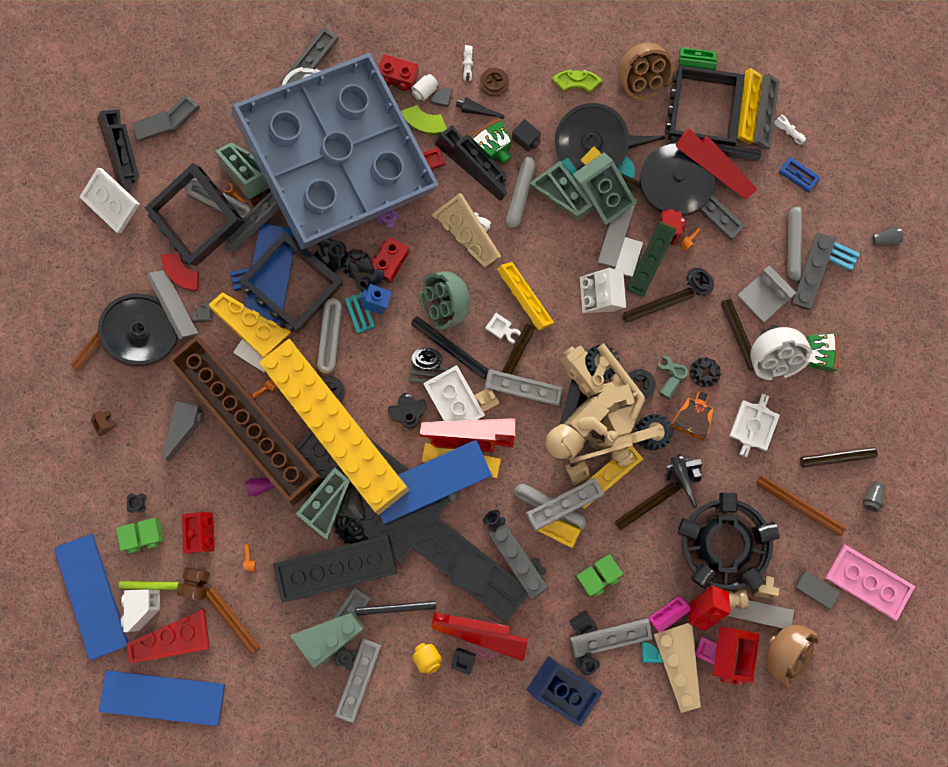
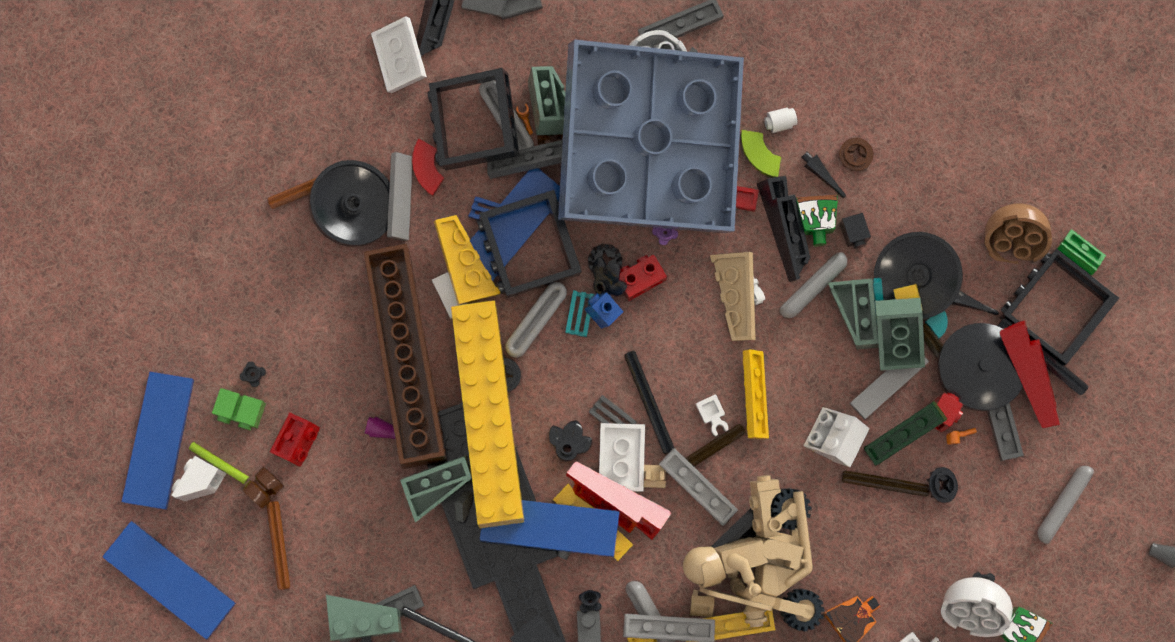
camera: 25 degrees right, 0 degrees up
(100, 423) = (262, 275): reddish brown tile -> none
(178, 638) = (213, 530): red wing -> none
(182, 425) = (342, 323): dark grey slope -> none
(203, 313) = (424, 222): dark grey tile -> none
(248, 565) = (325, 501): orange hand -> none
(269, 385) = (447, 333): orange hand -> none
(328, 255) = (582, 235): black plate -> none
(335, 568) = (407, 555): black plate -> none
(354, 529) = (448, 528): black gear -> none
(398, 72) = (762, 88): red brick -> none
(431, 355) = (625, 398): black gear -> none
(442, 97) = (793, 139): dark grey tile -> none
(453, 296) = (682, 352): sand green cylinder -> none
(467, 63) = (840, 119): white piece -> none
(577, 79) = (947, 203): lime tile -> none
(629, 256) = (885, 416): white tile -> none
(649, 383) = (828, 557): black gear -> none
(678, 372) = (863, 566): sand green bar -> none
(696, 372) = (888, 590): black gear -> none
(738, 331) = (952, 557): dark brown axle -> none
(749, 106) = (1105, 333): yellow plate -> none
(766, 111) = (1119, 349): dark grey plate -> none
(766, 294) = (1002, 538): light grey bracket -> none
(783, 123) = (1130, 372): white piece -> none
(794, 179) = (1106, 437): blue tile -> none
(813, 271) = (1066, 543): dark grey plate -> none
(854, 254) = (1121, 552): medium azure tile -> none

